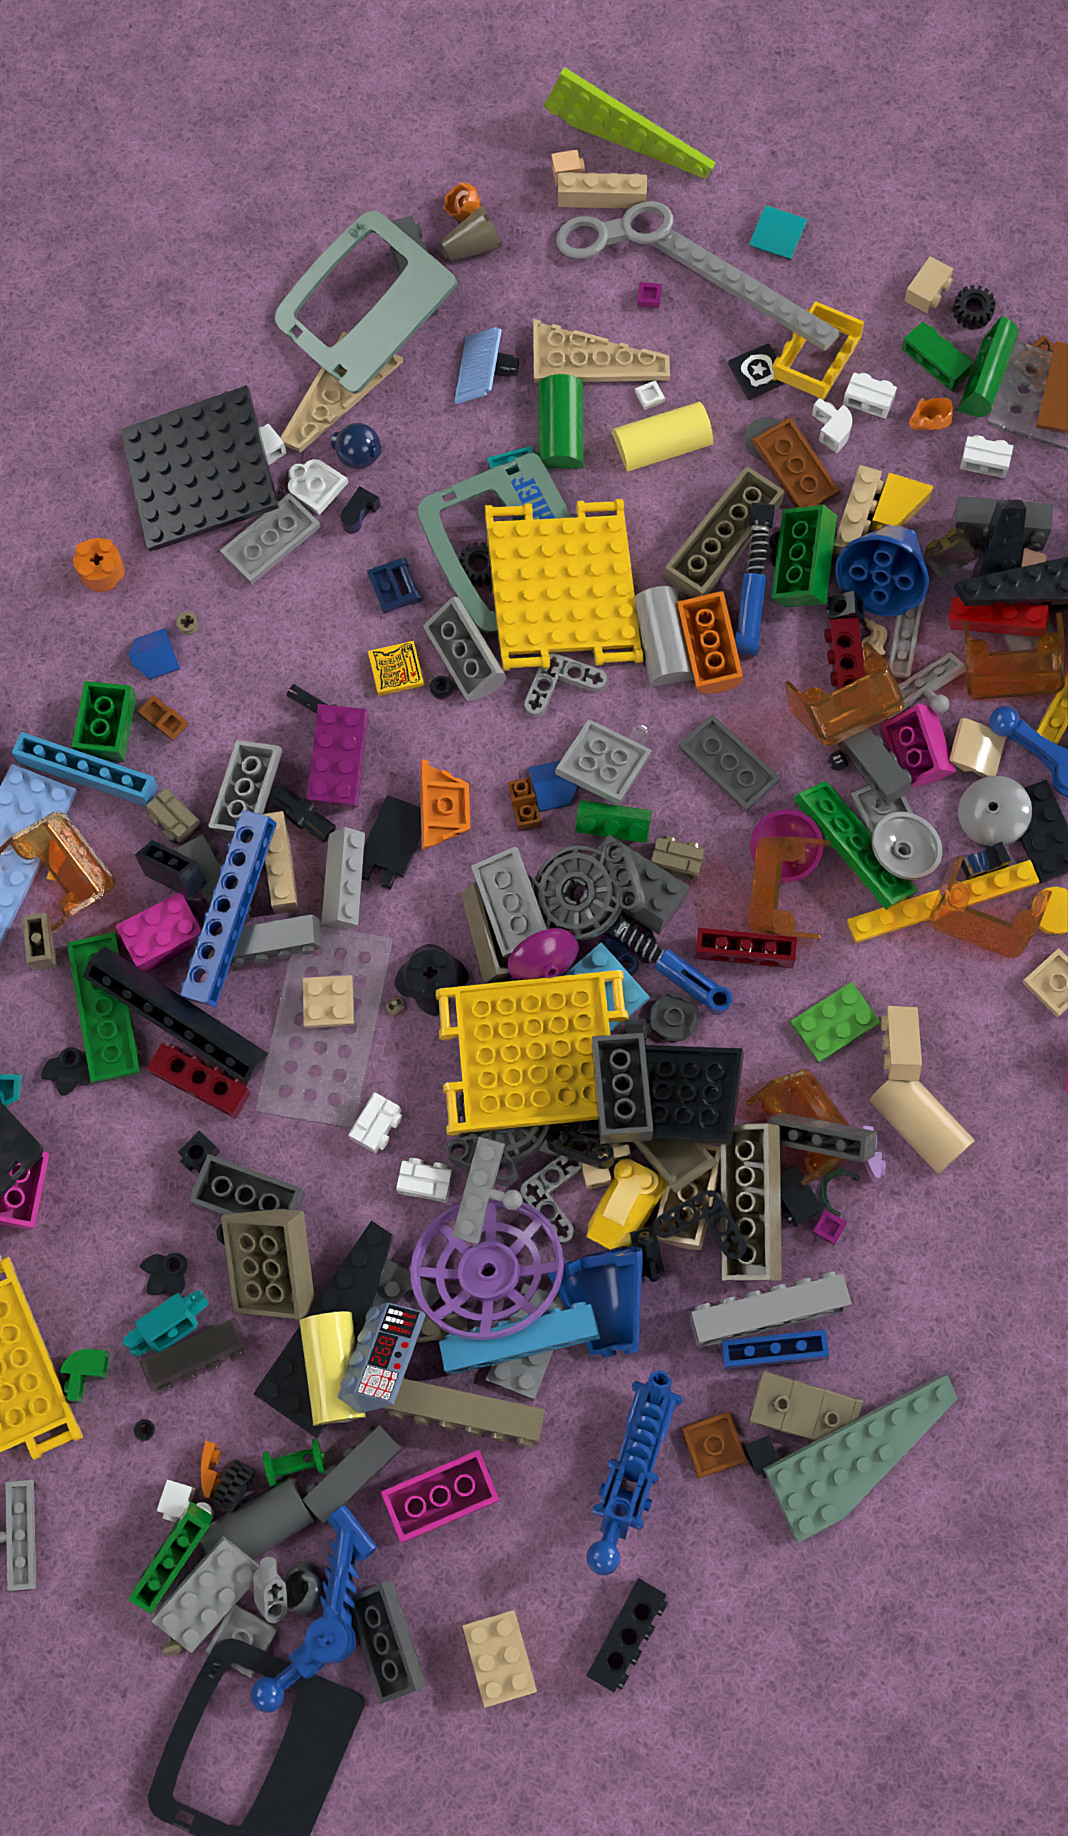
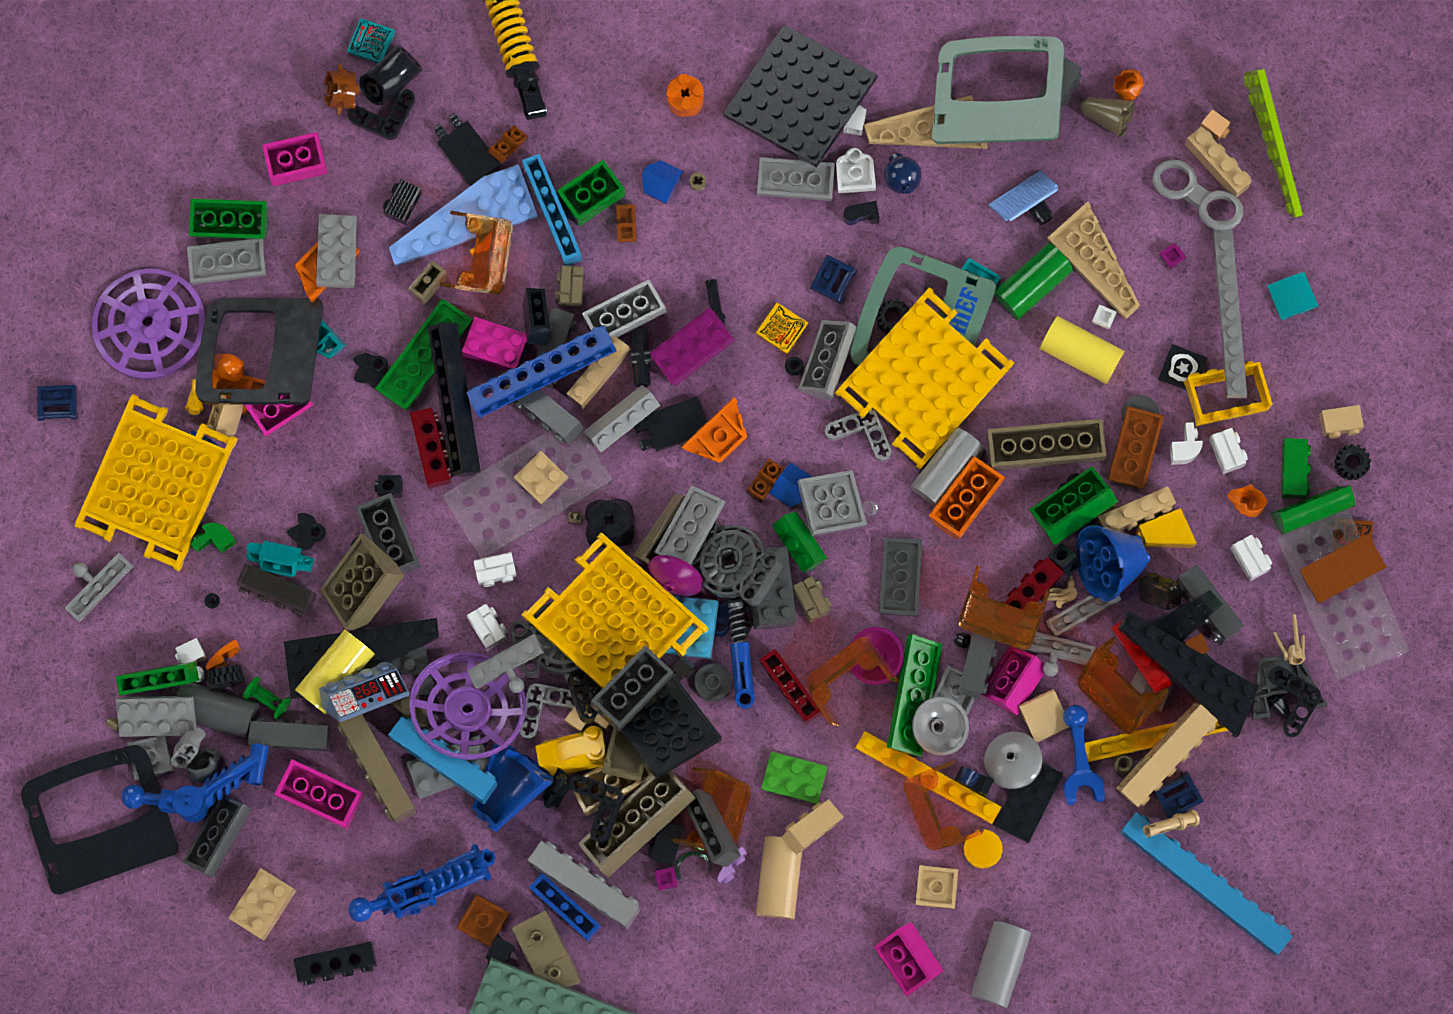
camera: 45 degrees right, 5 degrees up
(754, 581) = (1027, 491): piece -> none

